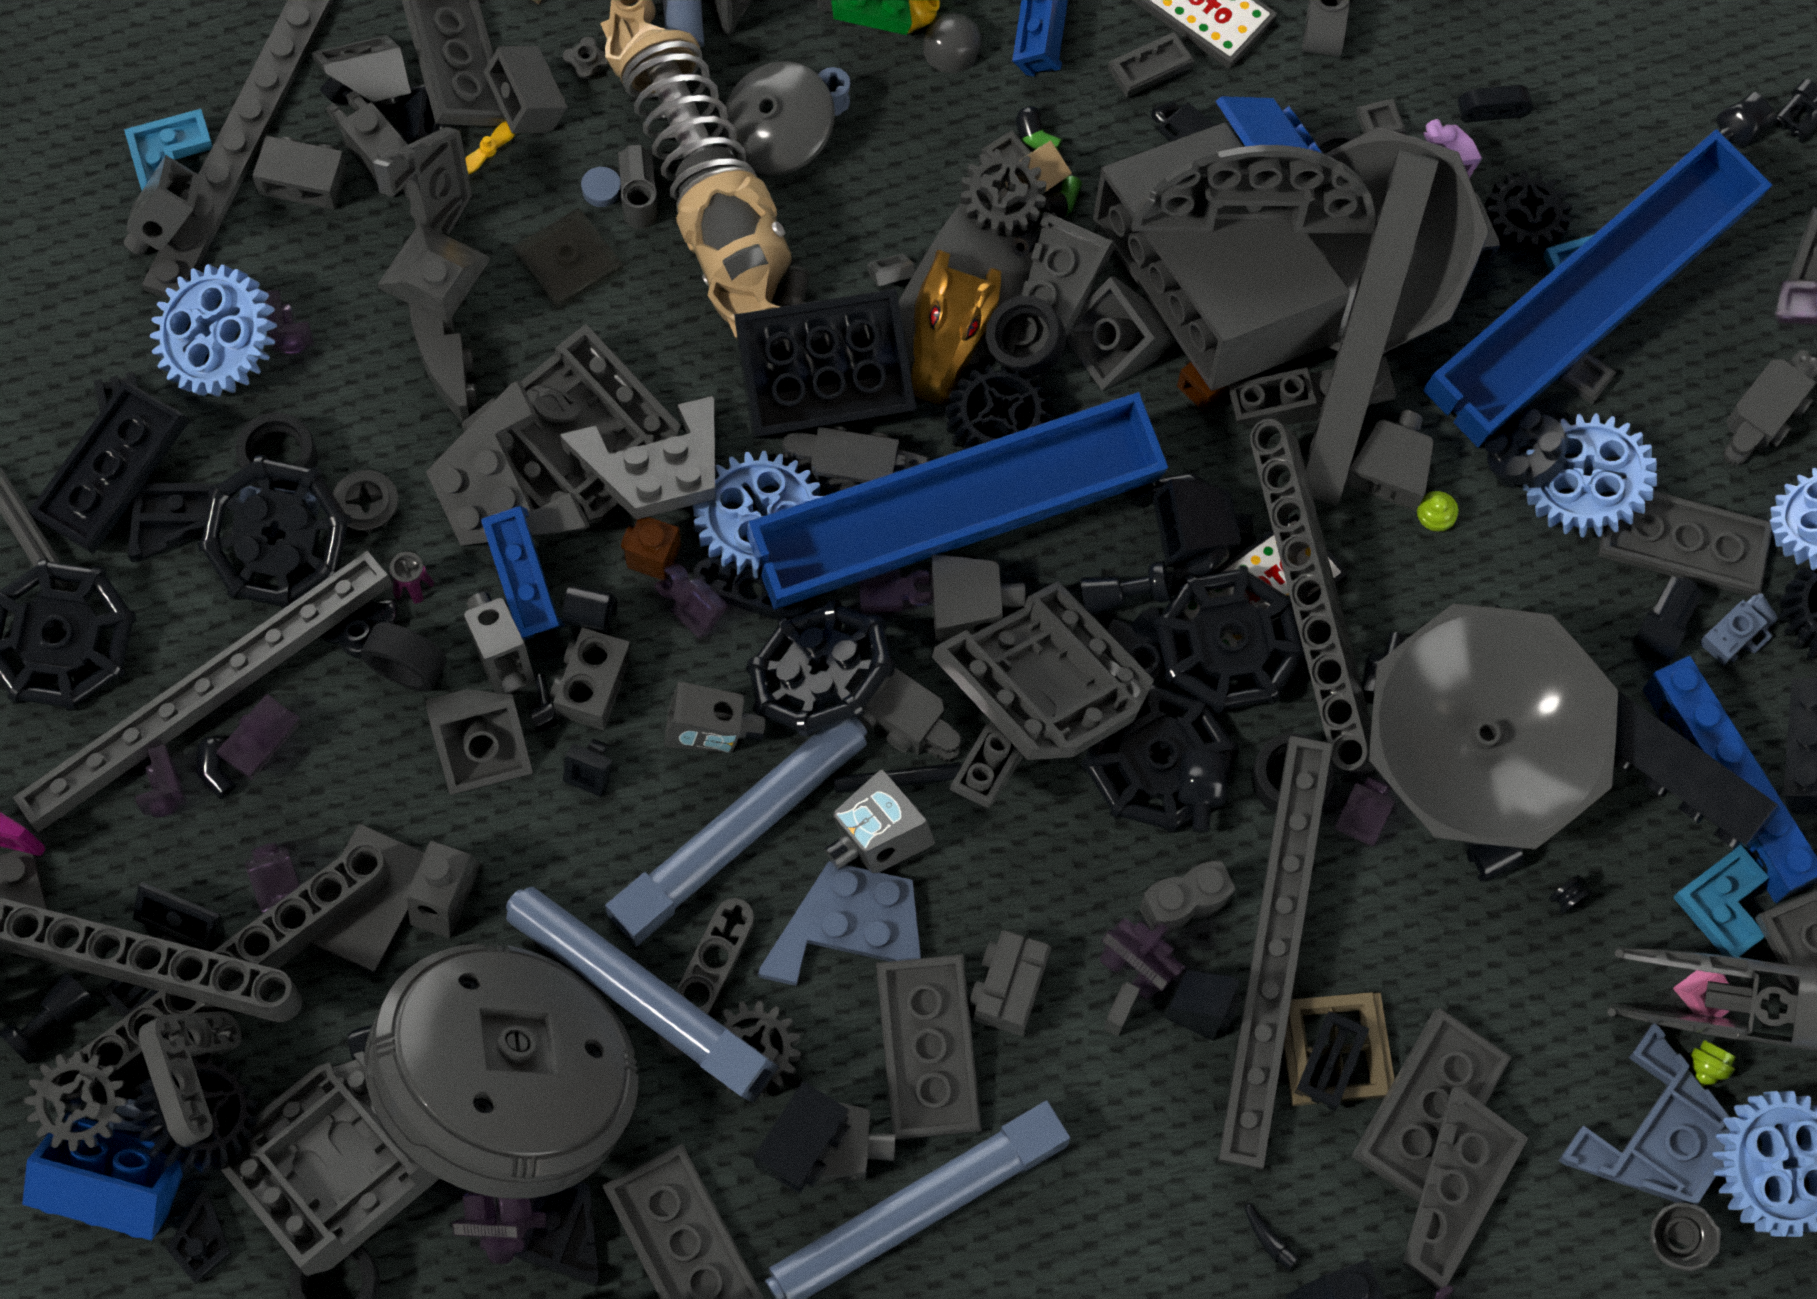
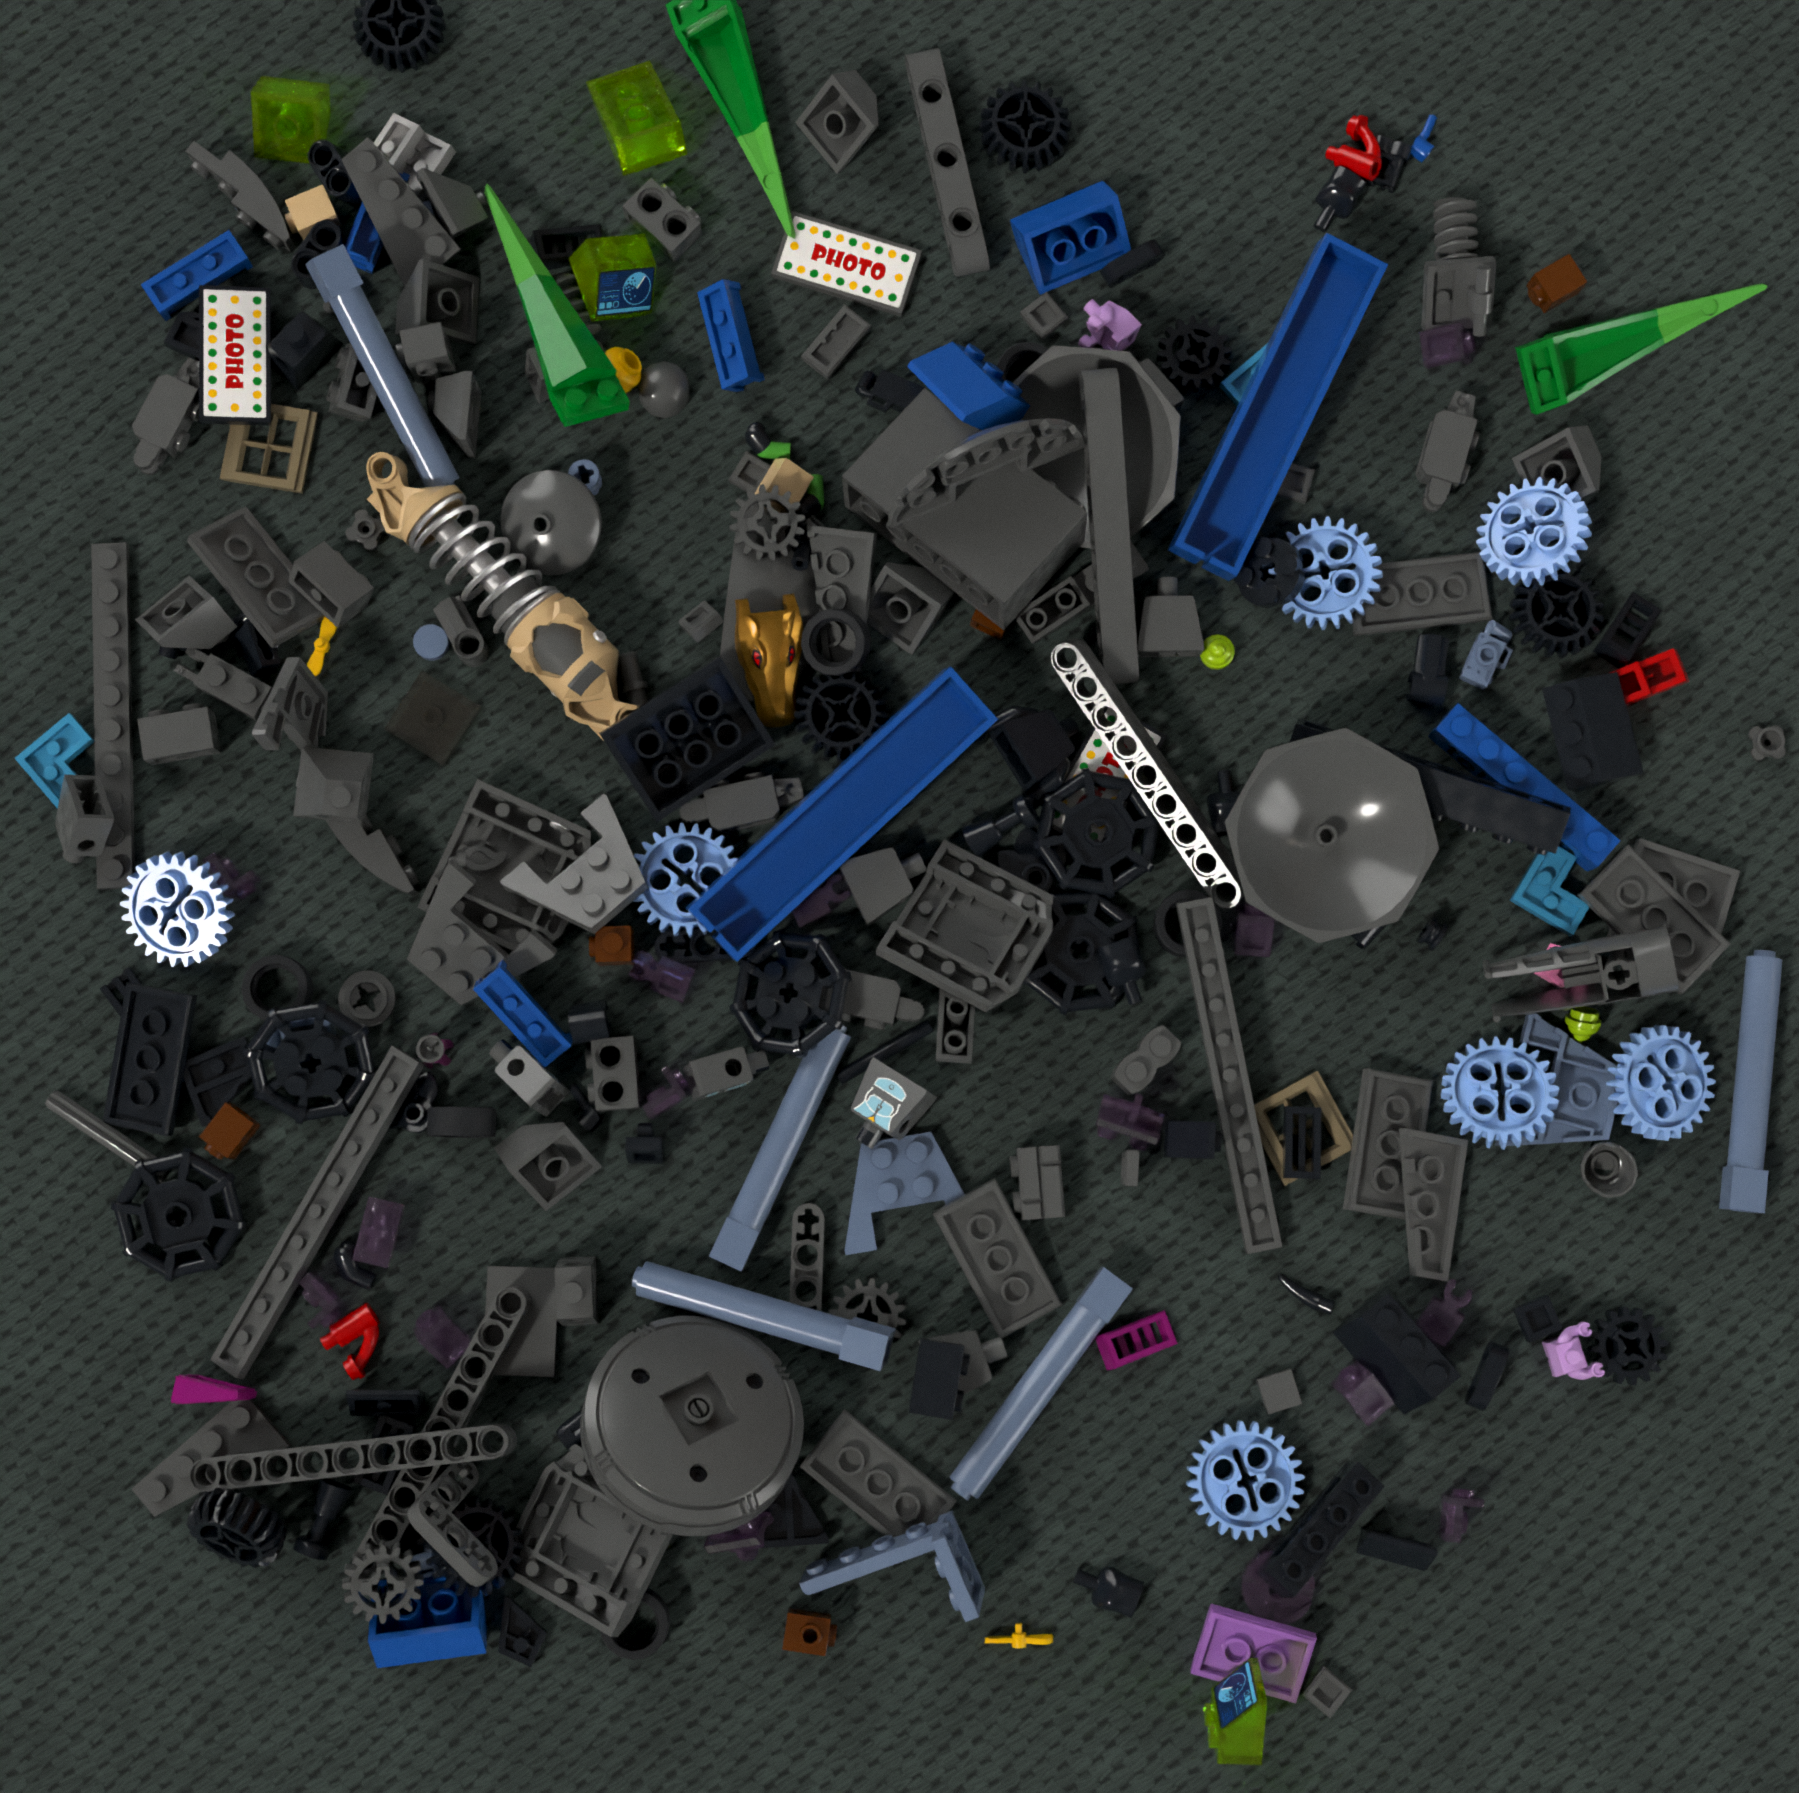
camera: 25 degrees left, 15 degrees up
(153, 572) = (229, 1132): none -> reddish brown brick
(178, 827) = (347, 1329): none -> red plant
(637, 727) = (662, 1099): none -> clear purple bracket
(1015, 1220) = (1109, 1353): none -> magenta slope
(1439, 55) = (1071, 236): none -> blue slope
(1618, 1097) = (1532, 1092): none -> light blue gear
(1781, 98) = (1364, 164): none -> red plant

